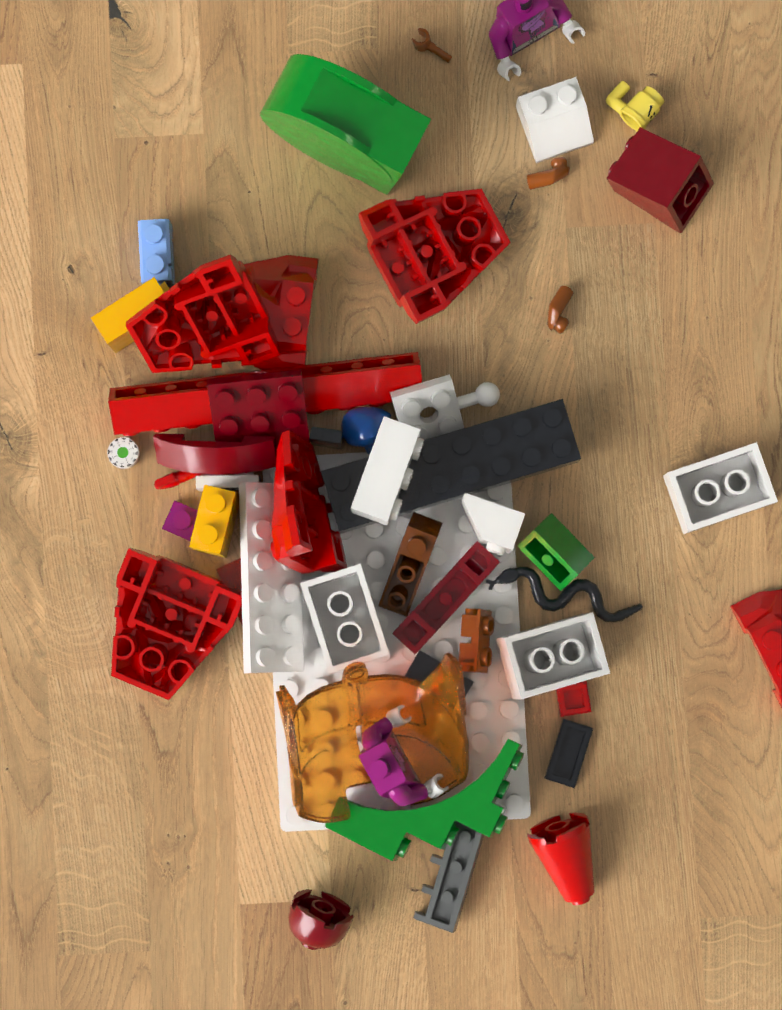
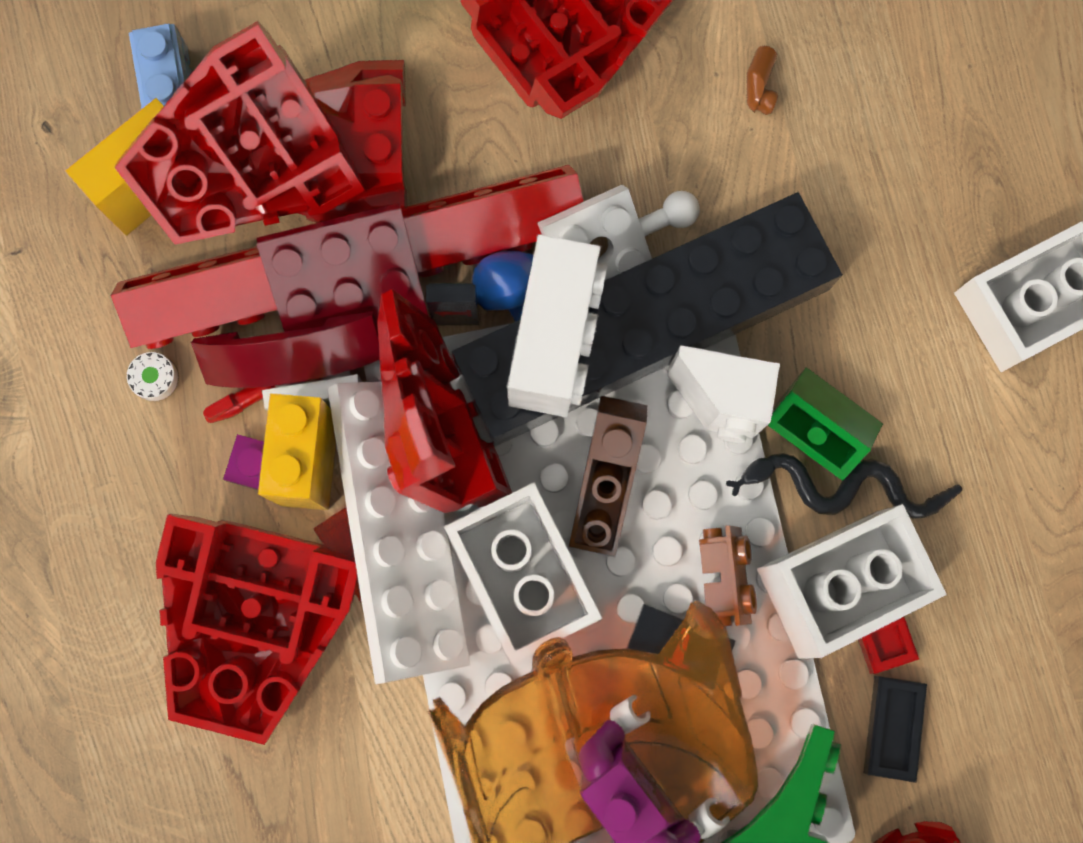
camera: 15 degrees left, 5 degrees down
(446, 597) = (671, 517): dark red slope -> none

